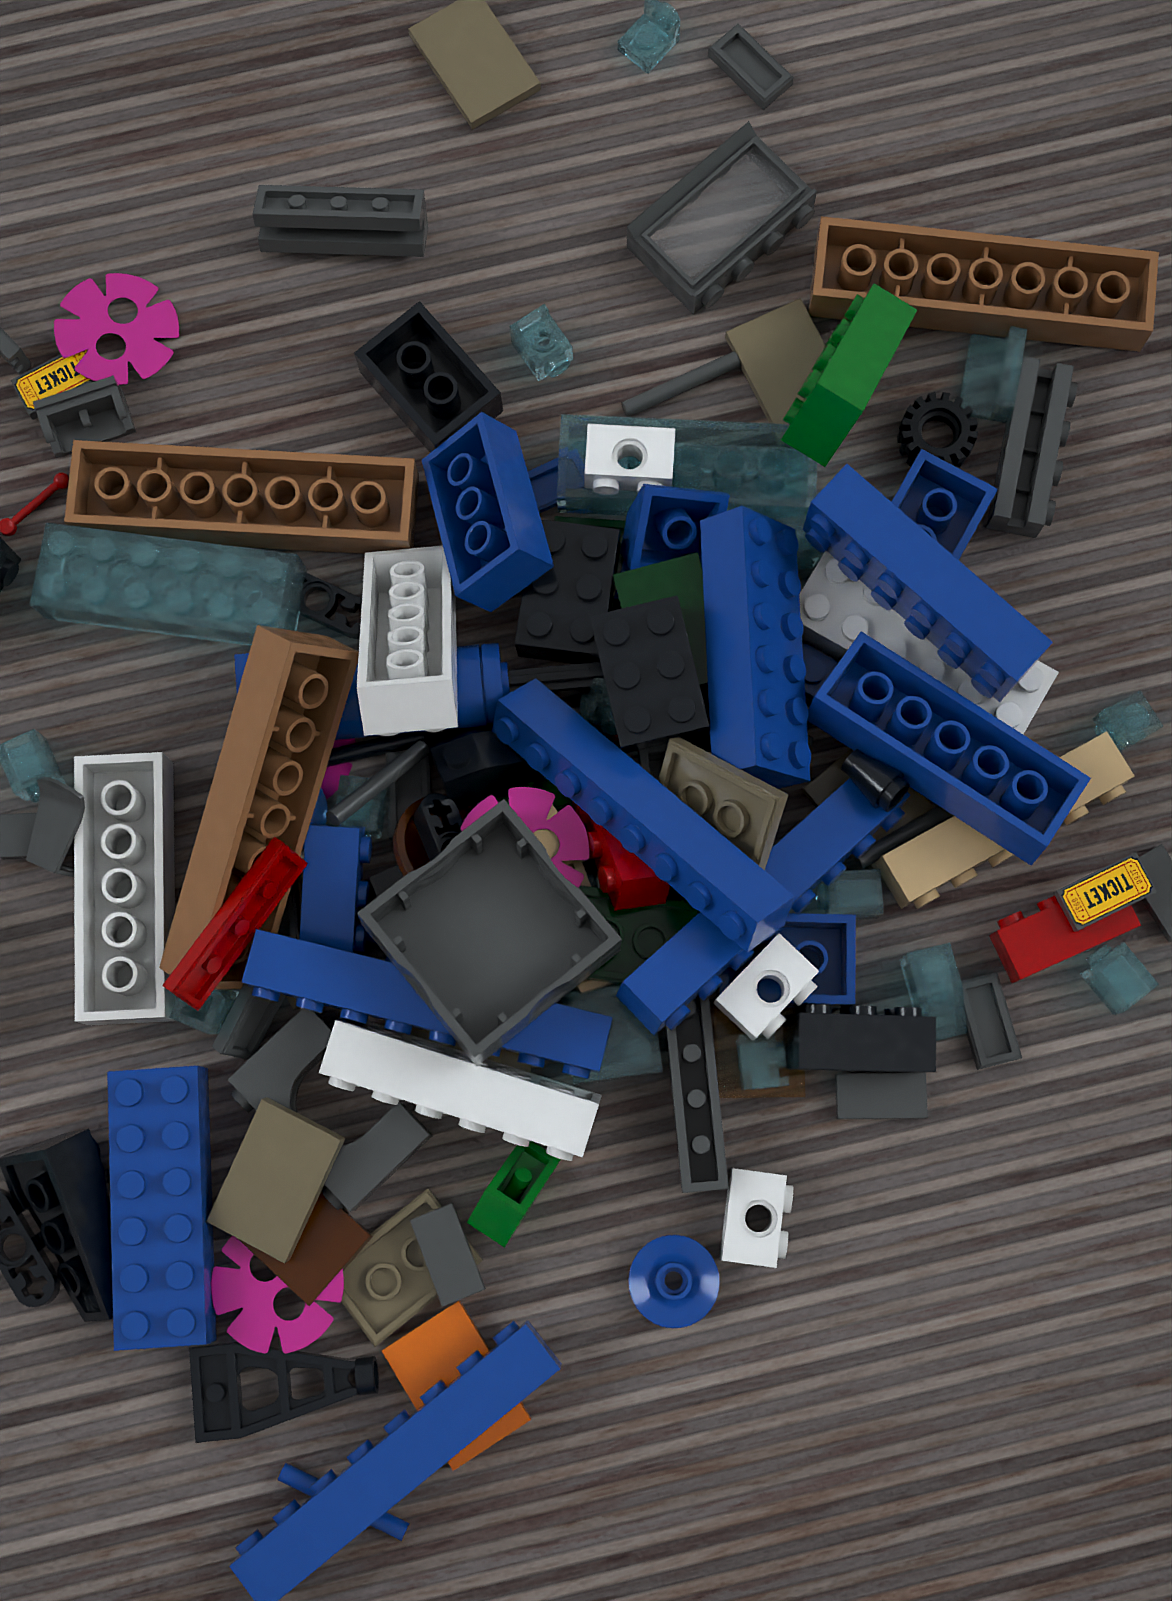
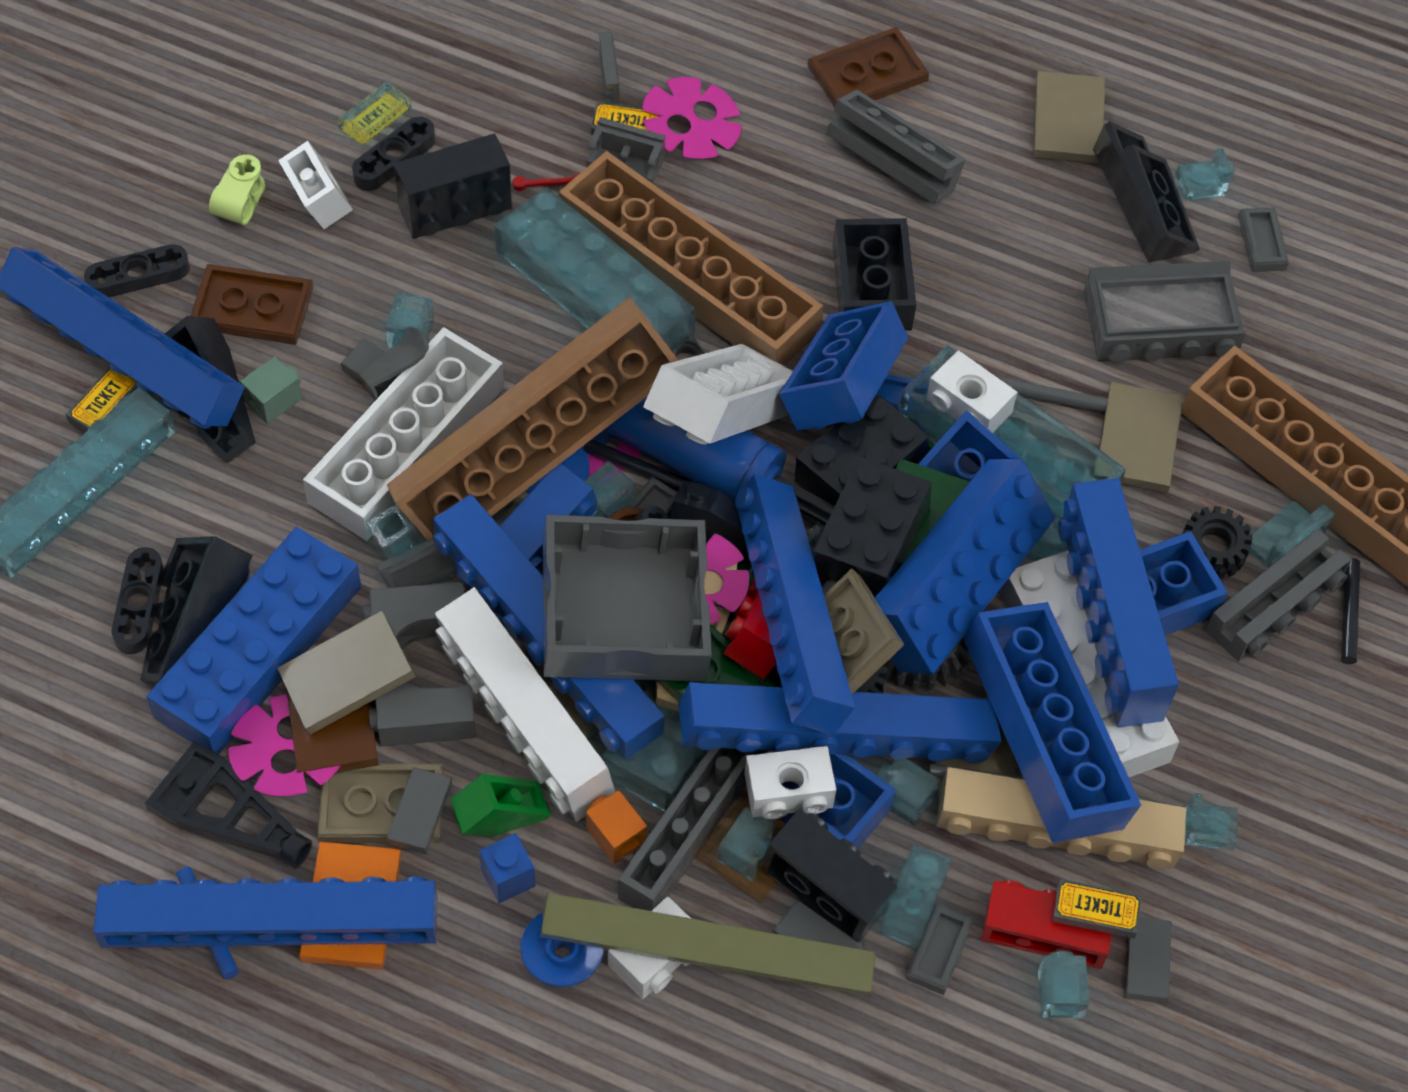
camera: 30 degrees right, 20 degrees down
(235, 924) = (455, 481): red tile -> none
(243, 144) = (871, 65): none -> reddish brown tile
(377, 783) = (628, 478): dark grey bar -> none
(534, 329) = (972, 304): clear light blue brick -> none
(568, 1247) = (507, 868): none -> blue brick
(612, 98) = (1145, 193): none -> black slope
(628, 1129) = (615, 826): none -> orange brick
(801, 1190) = (707, 944): none -> olive tile
(846, 373) = (1172, 444): green brick -> none
(878, 782) = (982, 709): black cone -> none
(1101, 417) = (1351, 613): none -> black bar

